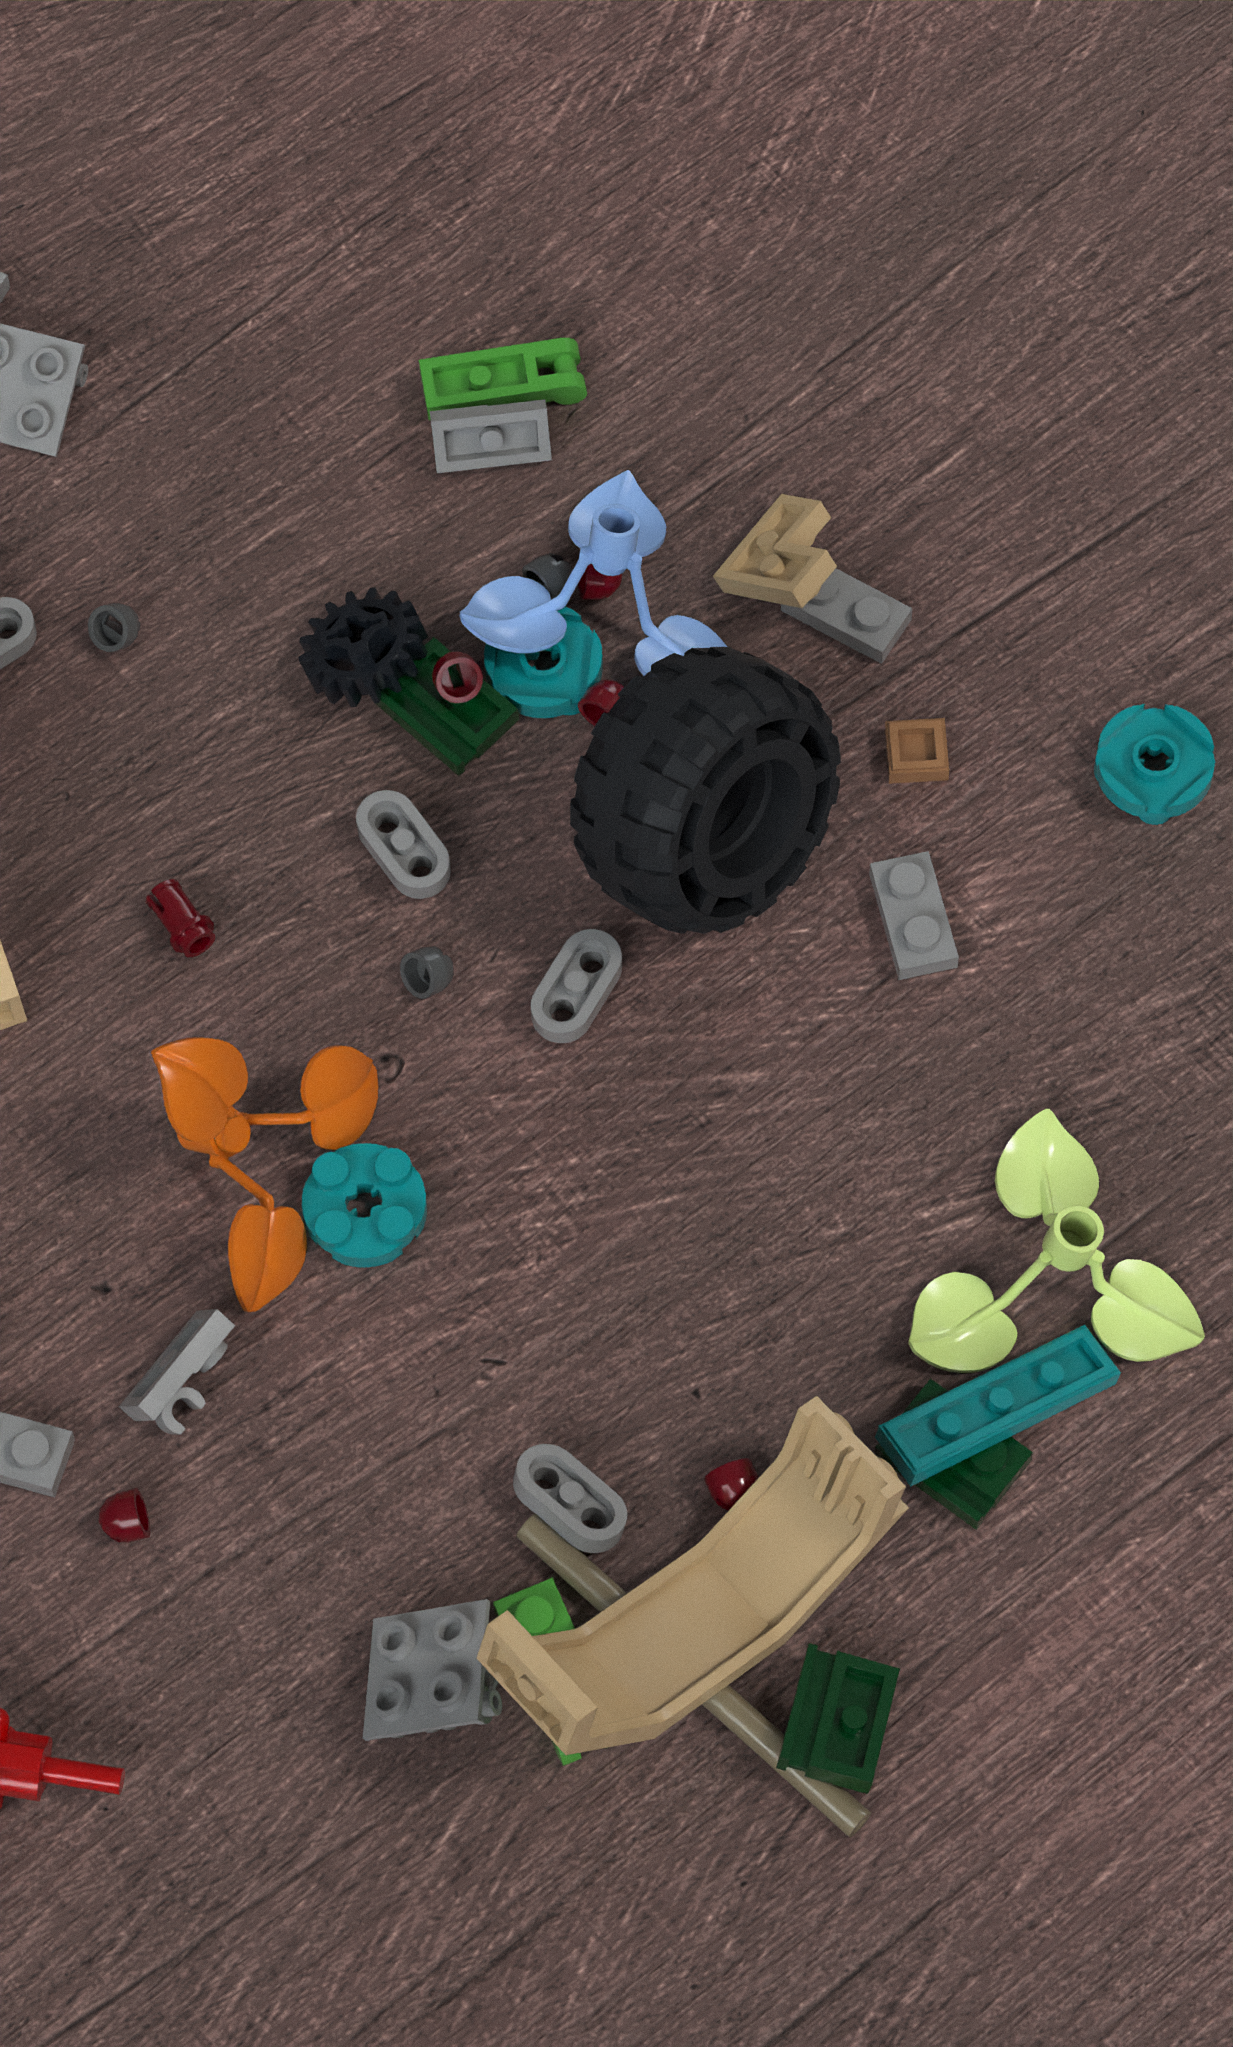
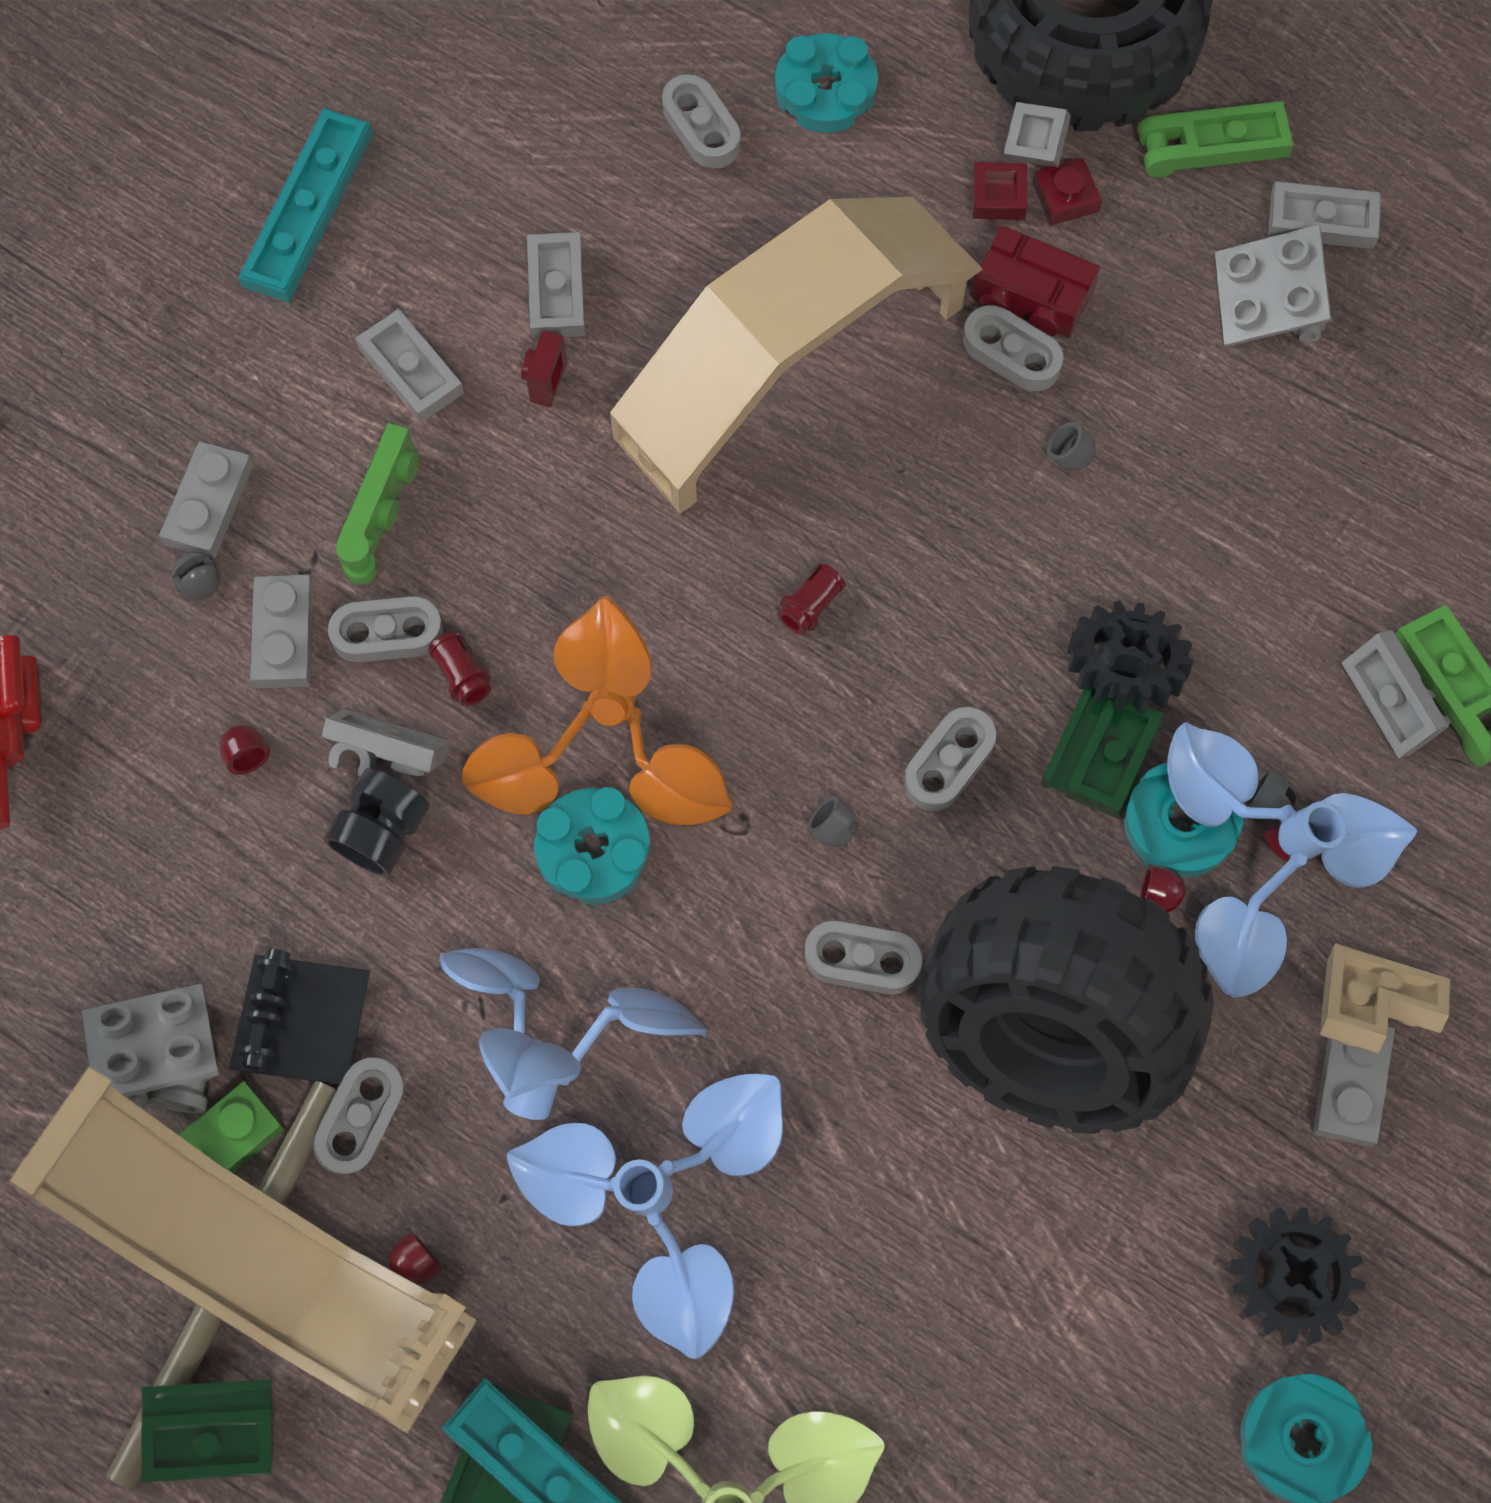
camera: 70 degrees right, 5 degrees up
(47, 1340) = (387, 627): none -> light grey plate
(123, 1276) = (466, 680): none -> dark red pin
(259, 1389) = (378, 819): none -> black wheel
(444, 1533) = (299, 1019): none -> black hinge
(469, 673) = (1114, 736): dark red hinge -> none
(580, 1296) = (533, 1069): none -> light blue plant
(689, 1316) = (570, 1169): none -> light blue plant
(913, 915) = (1051, 1248): light grey plate -> none
(916, 750) = (1228, 1196): medium nougat tile -> none
(1004, 723) = (1311, 1294): none -> black gear

